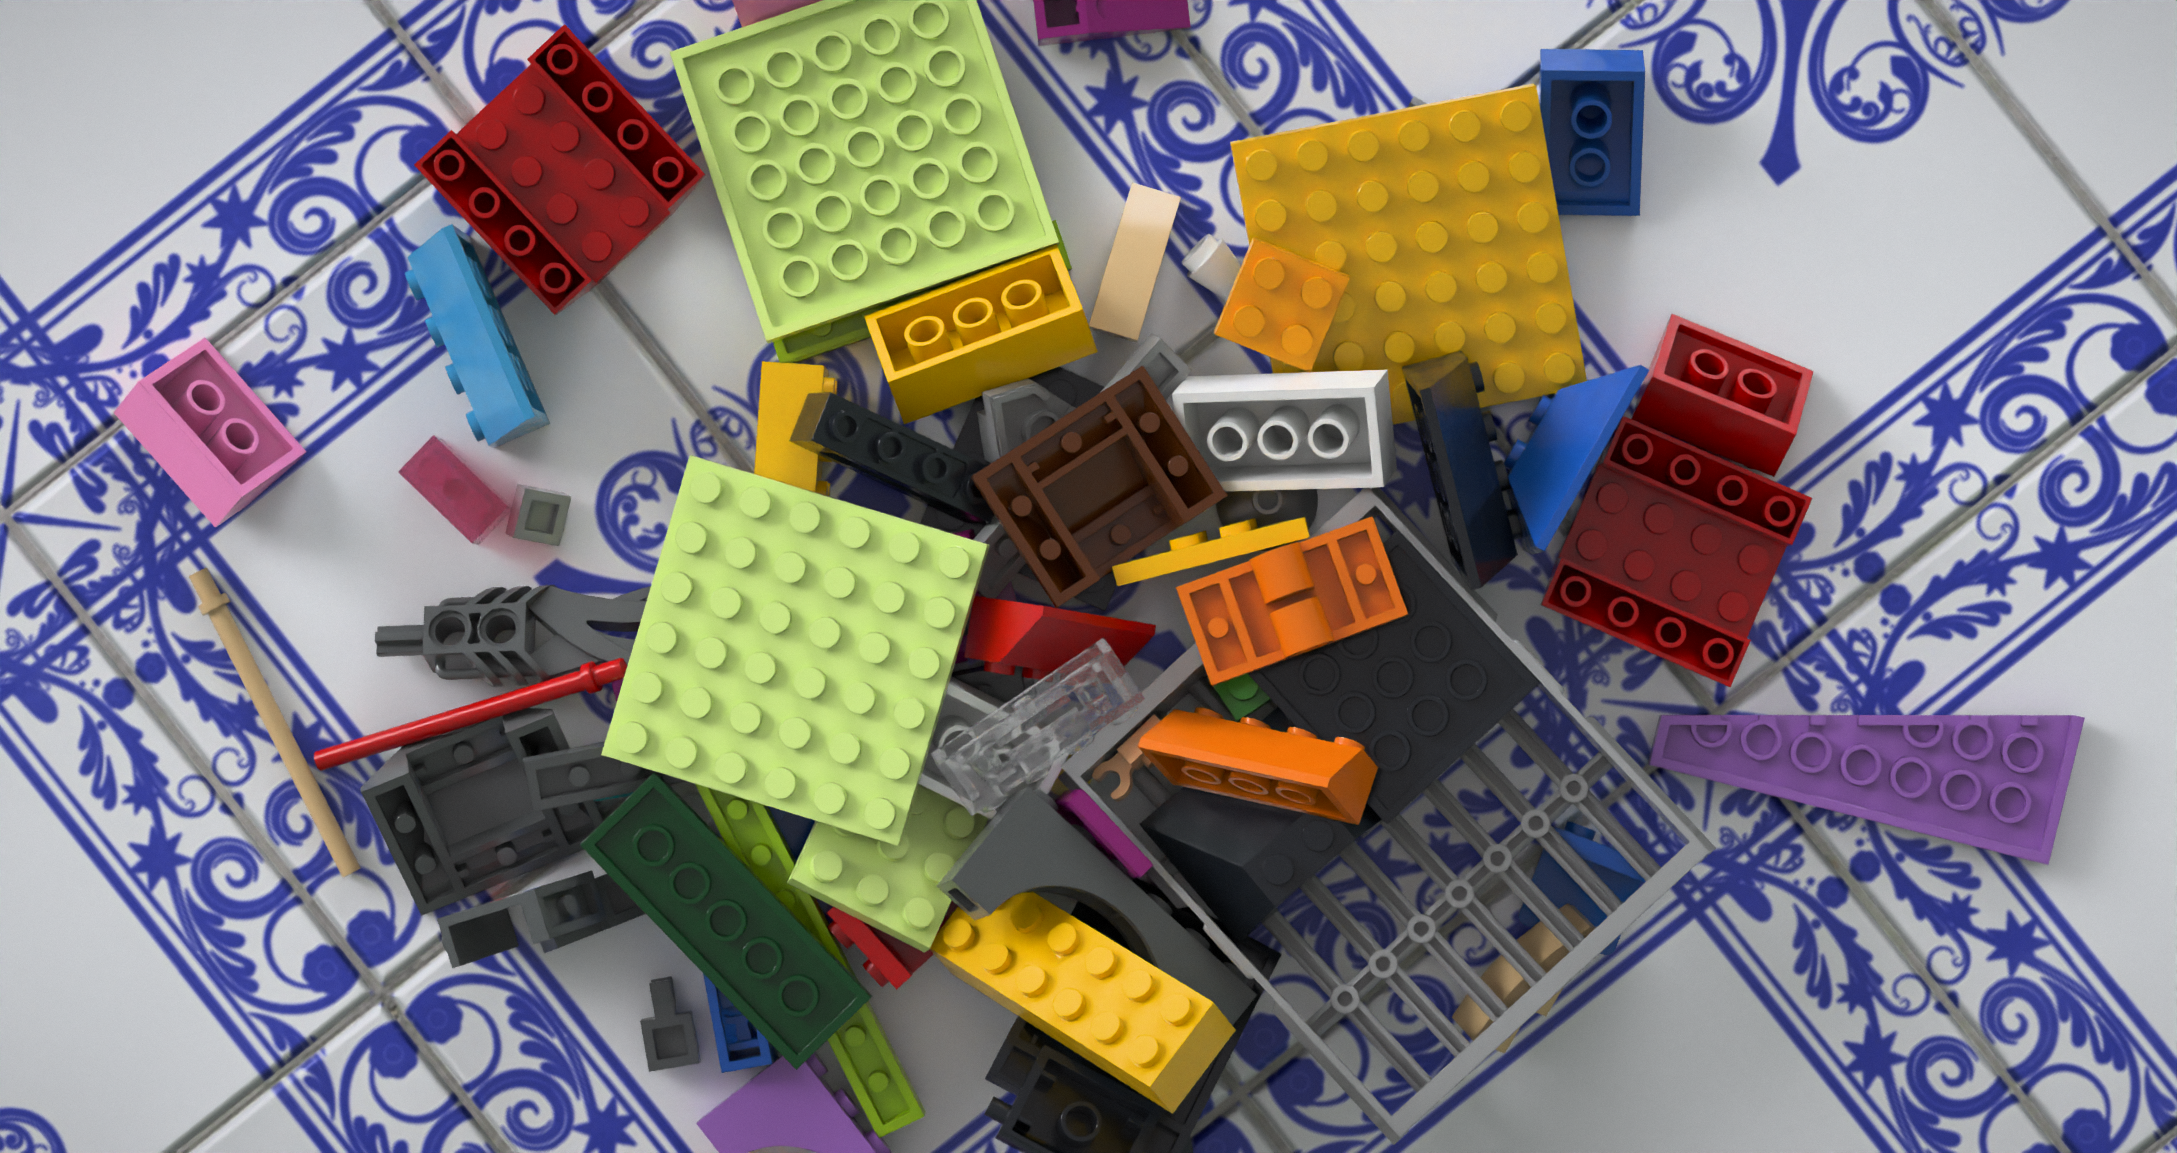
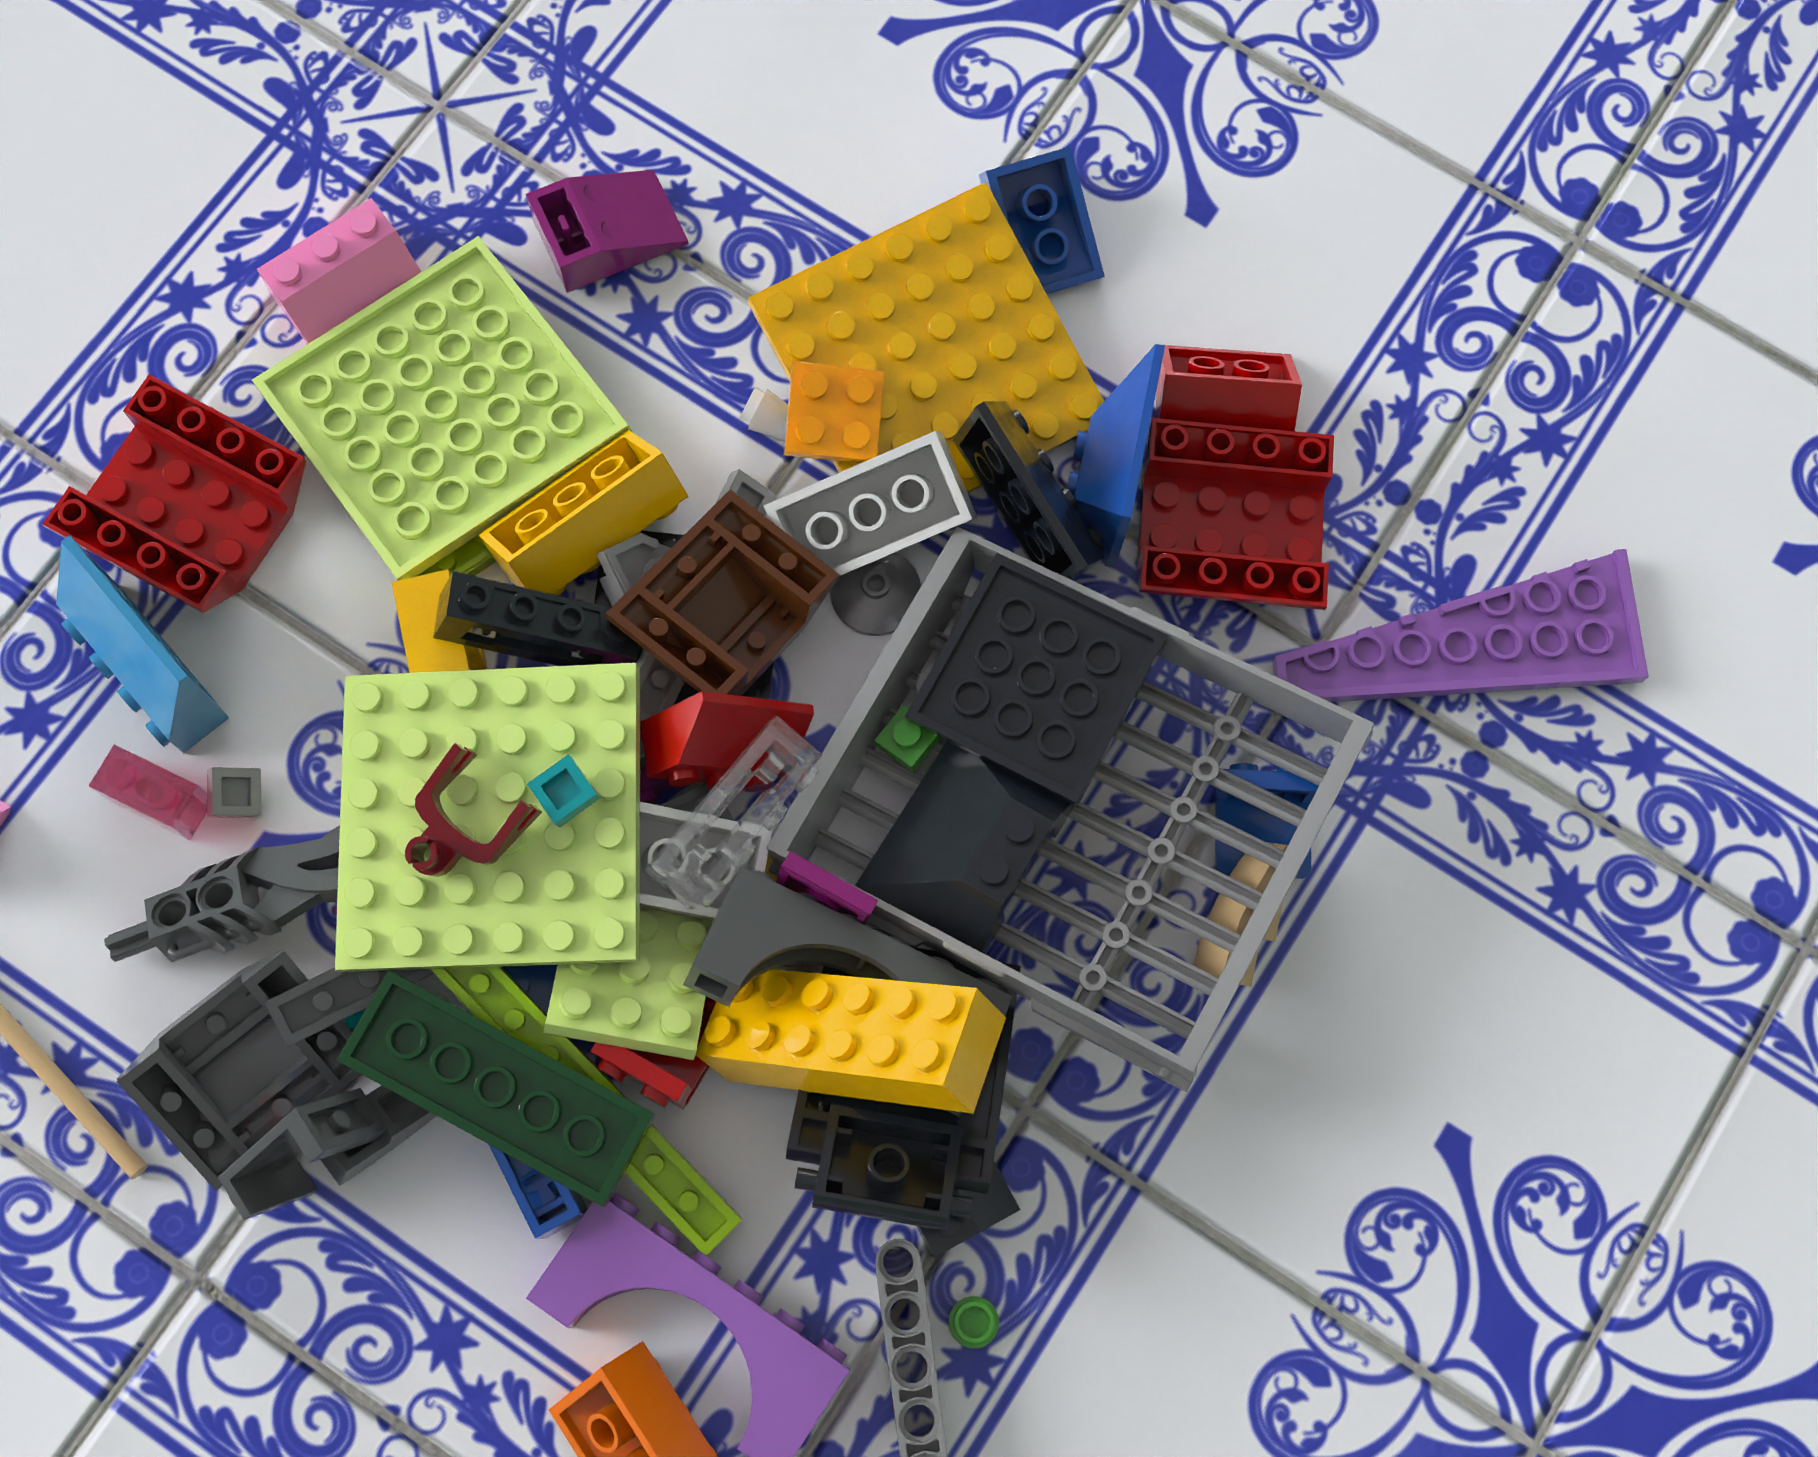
camera: 20 degrees left, 15 degrees down
(588, 678) = (308, 907): red bar -> none
(670, 1035) = (480, 1226): dark grey plate -> none
(749, 668) = (444, 837): none -> dark red piece
(877, 661) = (563, 791): none -> teal plate
(1126, 761) = (835, 816): light nougat plate -> none
(1134, 262) = (700, 432): tan slope -> none
(1197, 550) = (832, 636): yellow wing -> none
(1262, 764) = (948, 785): orange slope -> none
(1292, 601) = (924, 634): orange plate -> none

